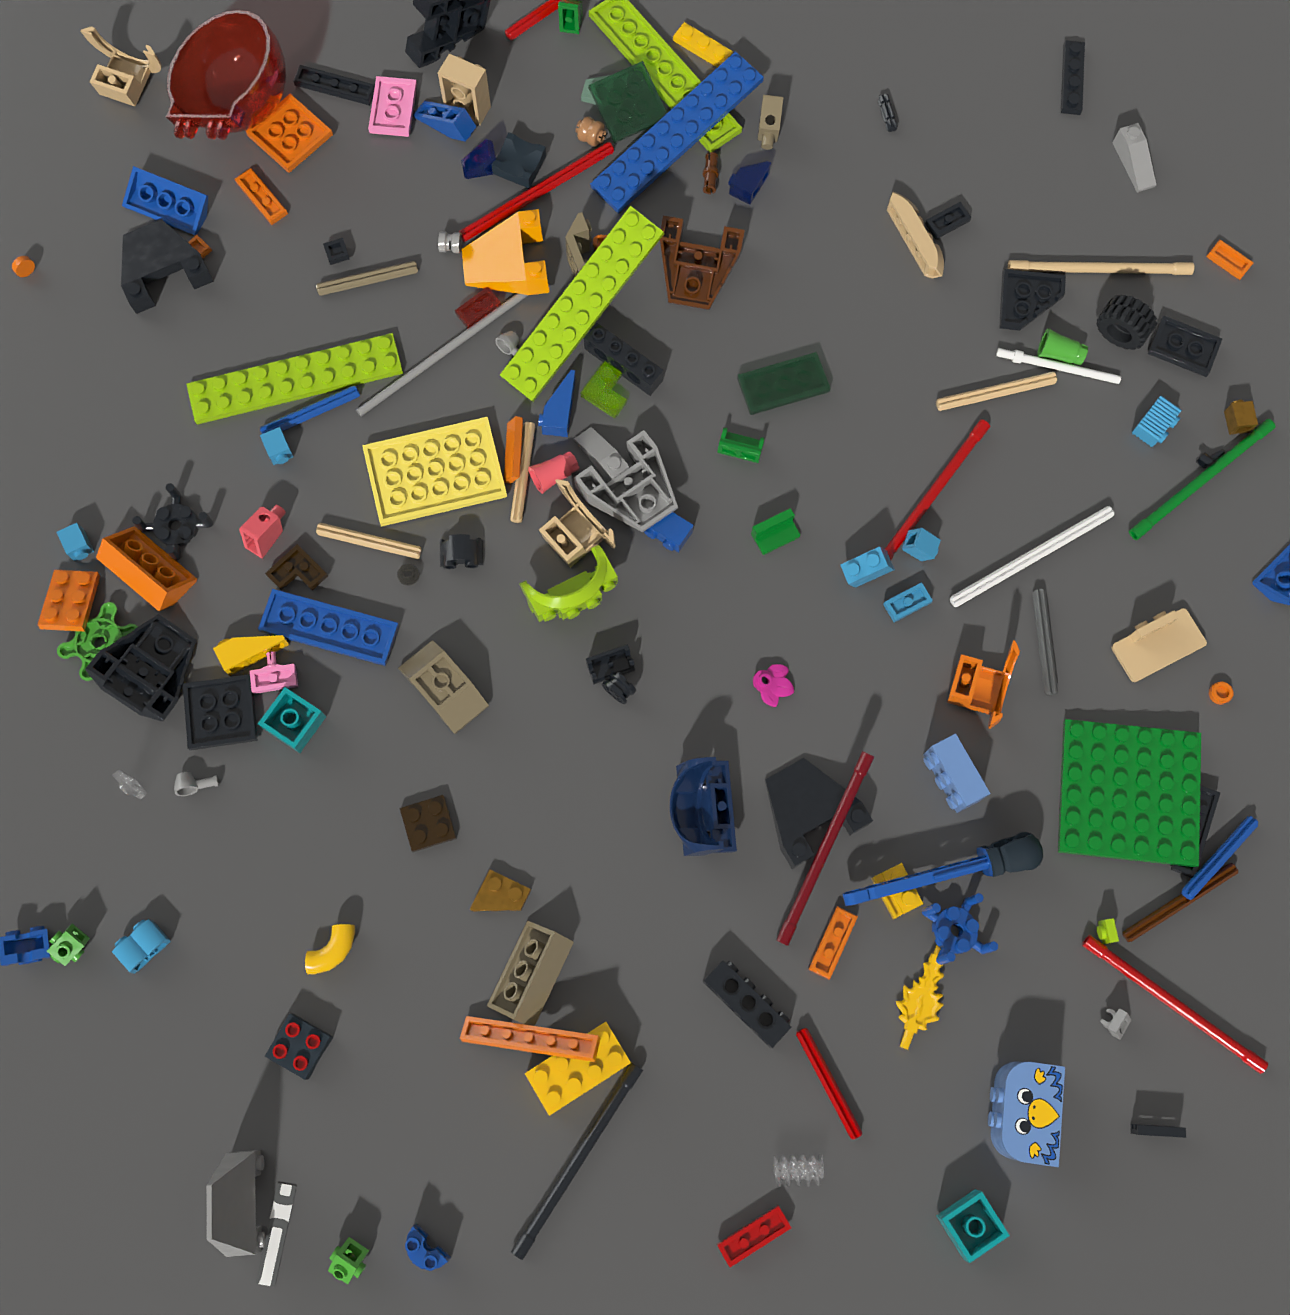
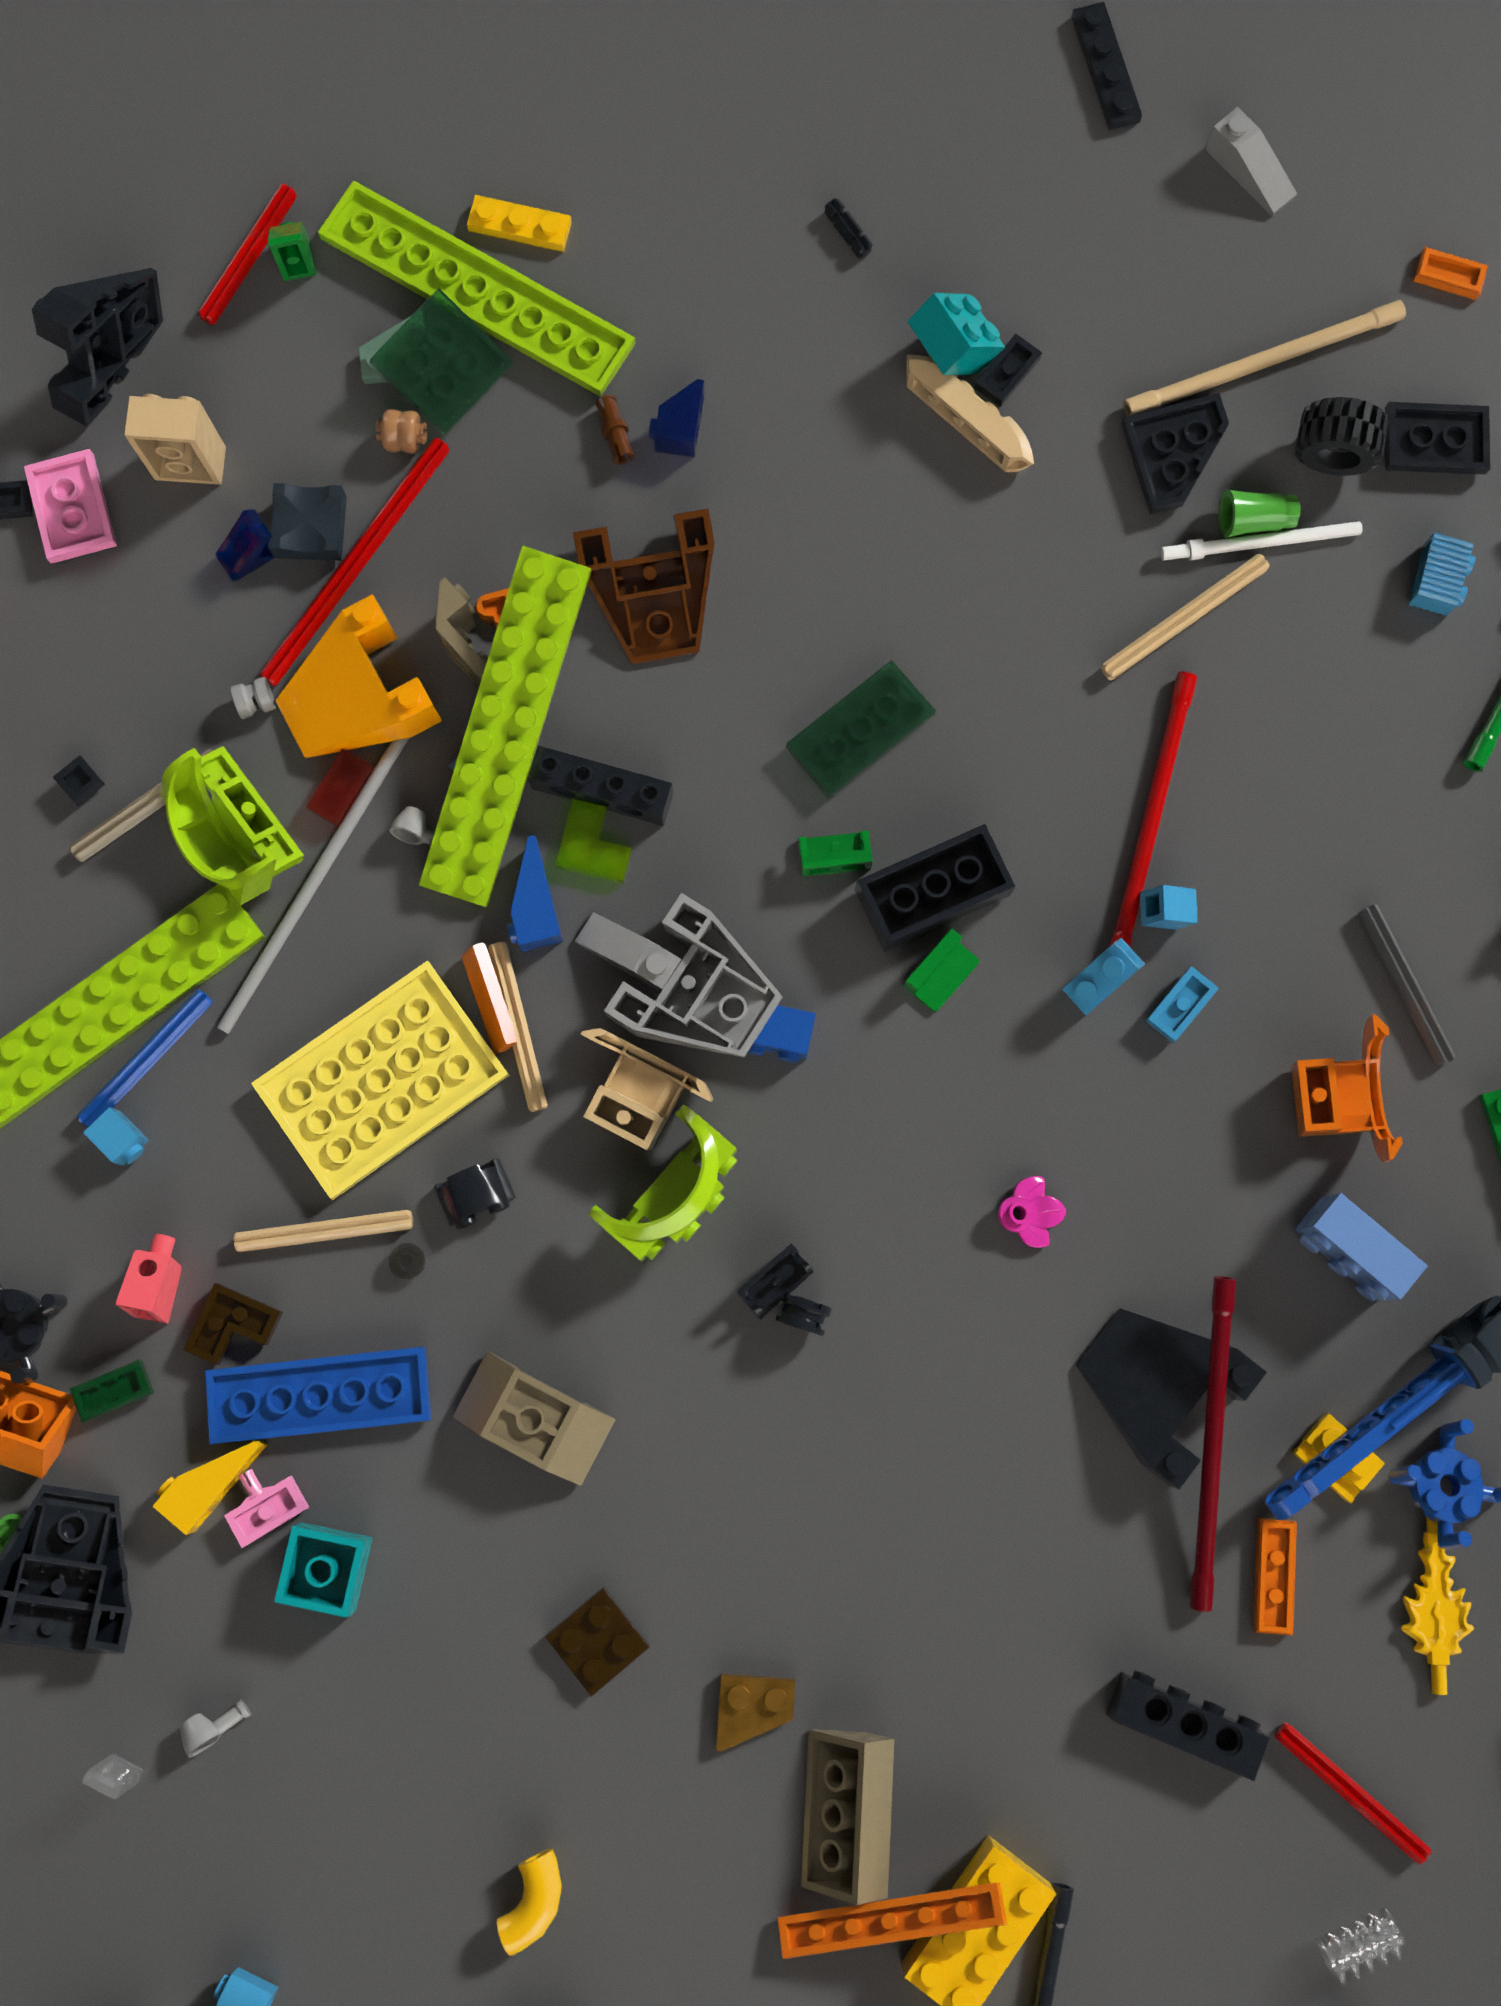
camera: 20 degrees left, 5 degrees up
(216, 581) = (111, 1391): none -> dark green plate
(219, 712) = (204, 1599): black plate -> none
(406, 309) = (230, 830): none -> lime piece
(447, 119) = (164, 497): blue slope -> none
(547, 472) = (565, 1008): coral plant -> none
(676, 132) = (537, 383): blue plate -> none
(703, 809) = (1007, 1454): dark blue piece -> none
(770, 120) = (674, 311): dark tan torso -> none
(790, 483) = (934, 887): none -> black brick
(925, 188) = (956, 333): none -> teal brick
(1031, 556) = (1336, 859): white axle -> none

